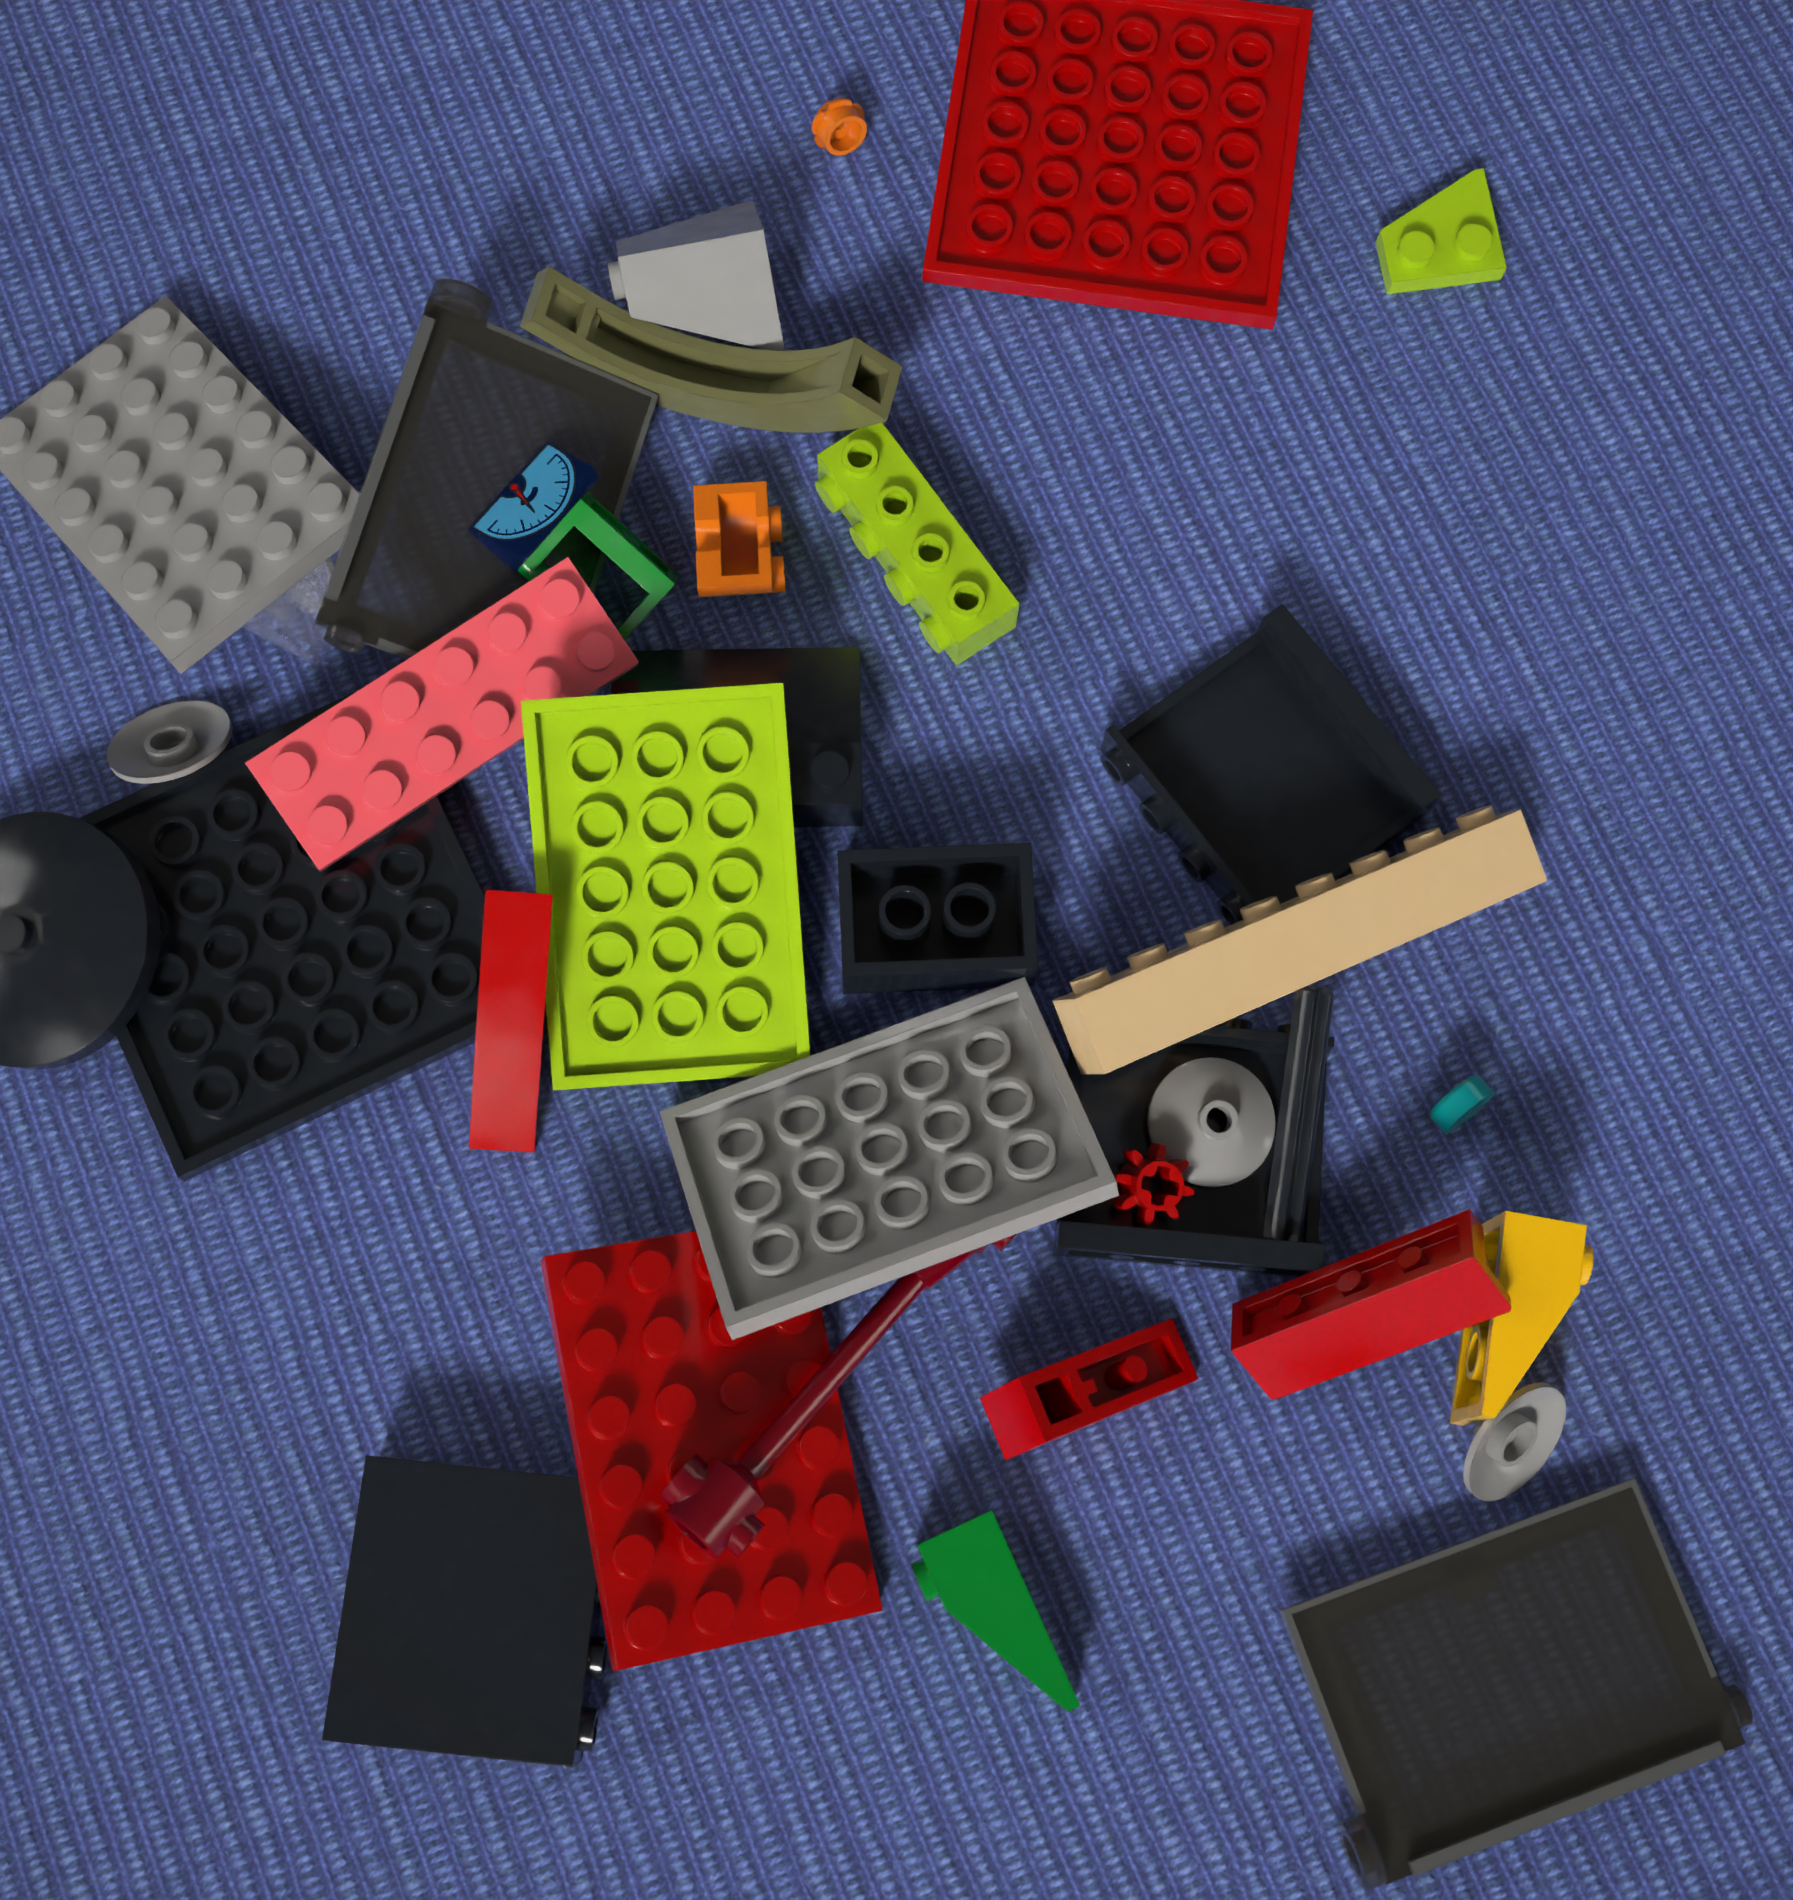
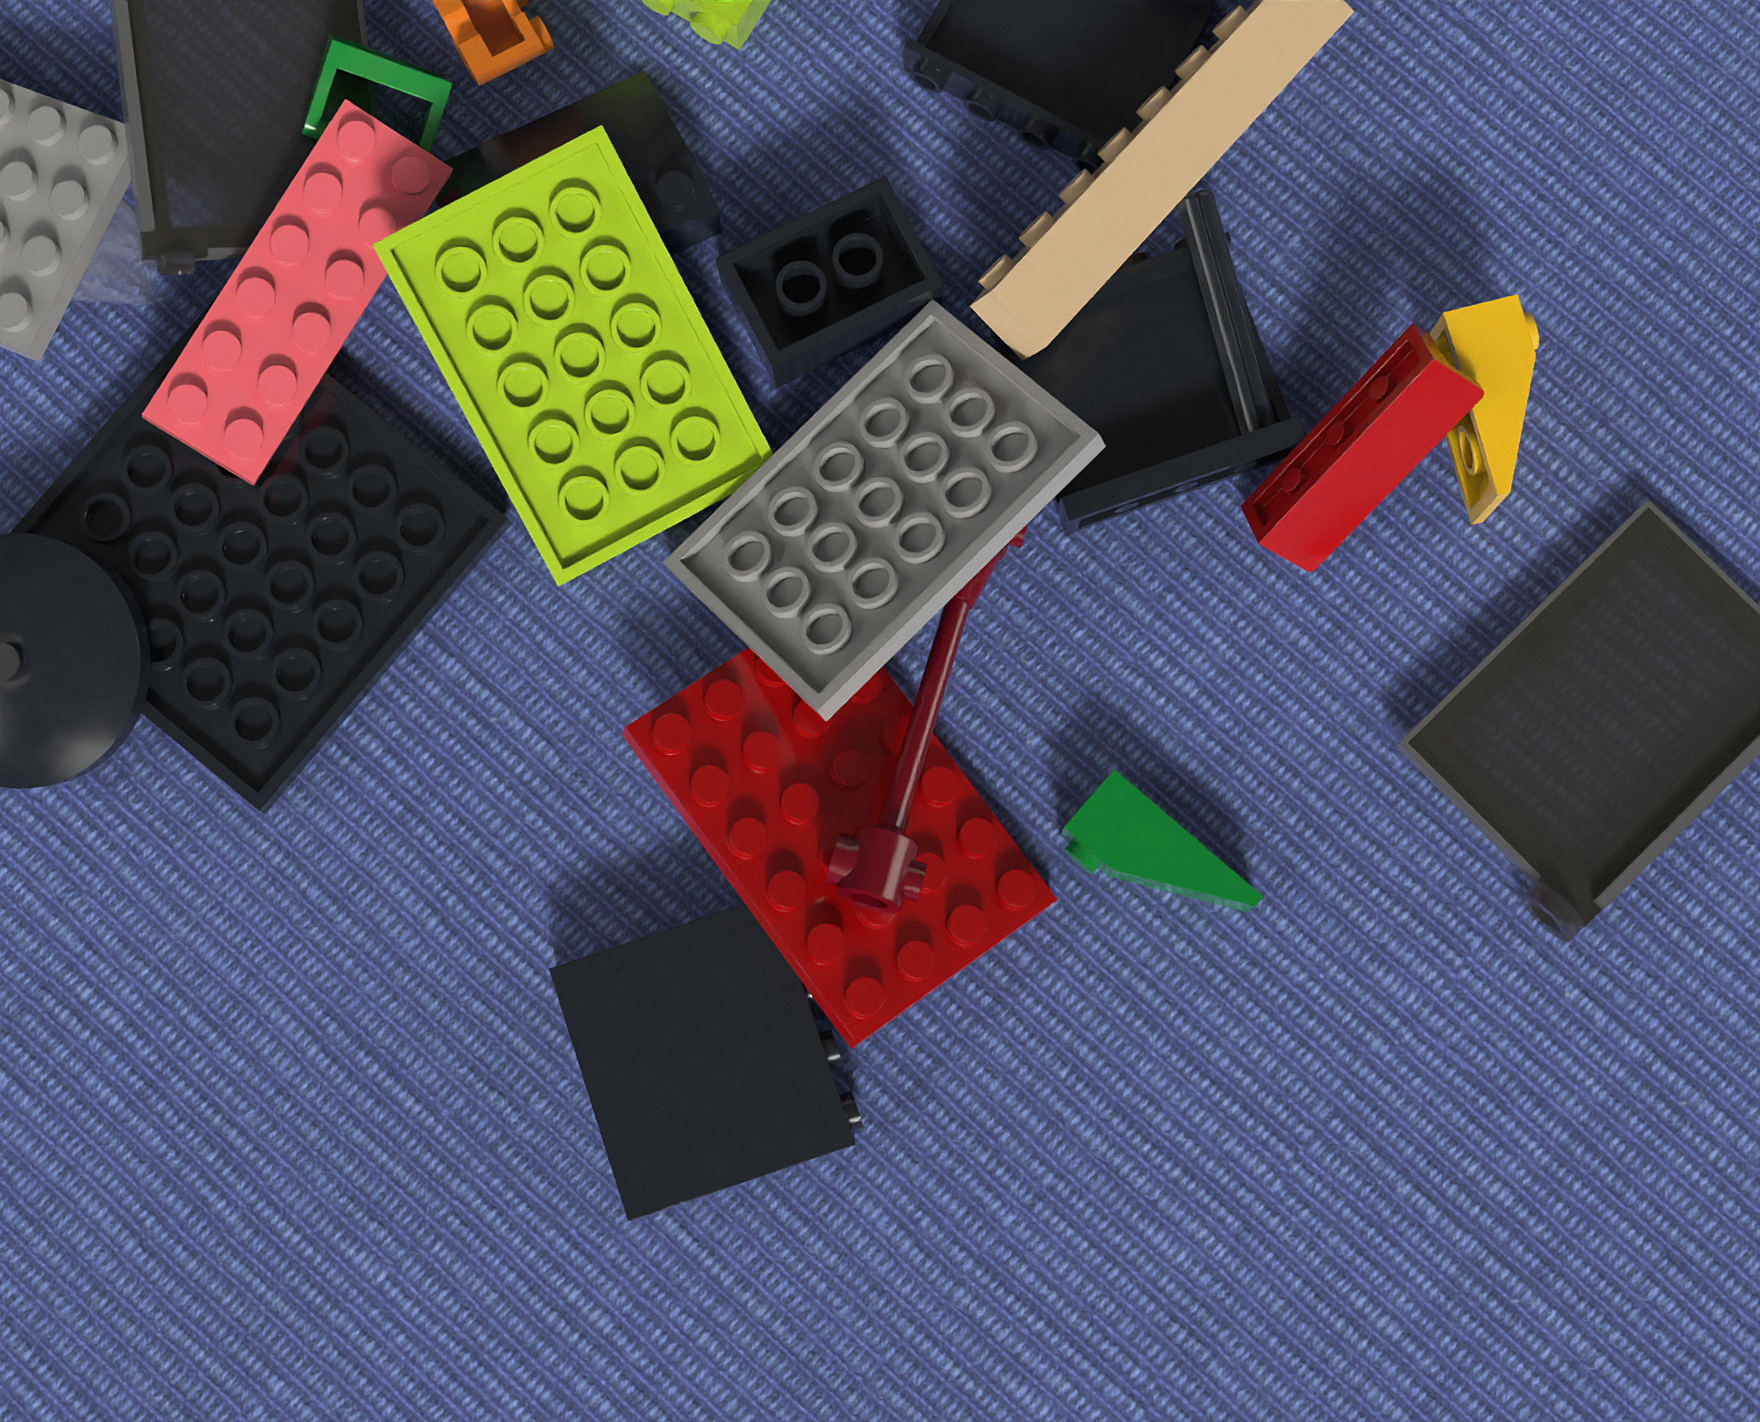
camera: 20 degrees left, 5 degrees up
(169, 742) = (55, 430): light grey dish -> none
(510, 1020) = (494, 538): red slope -> none
(533, 504) = (288, 65): slope -> none
(1087, 1388) = (1148, 633): red slope -> none
(1170, 1182) = (1141, 423): red gear -> none
(1180, 1120) = (1132, 376): light grey dish -> none
(1461, 1103) = (1363, 243): teal tile -> none
(1515, 1443) = (1534, 512): light grey dish -> none

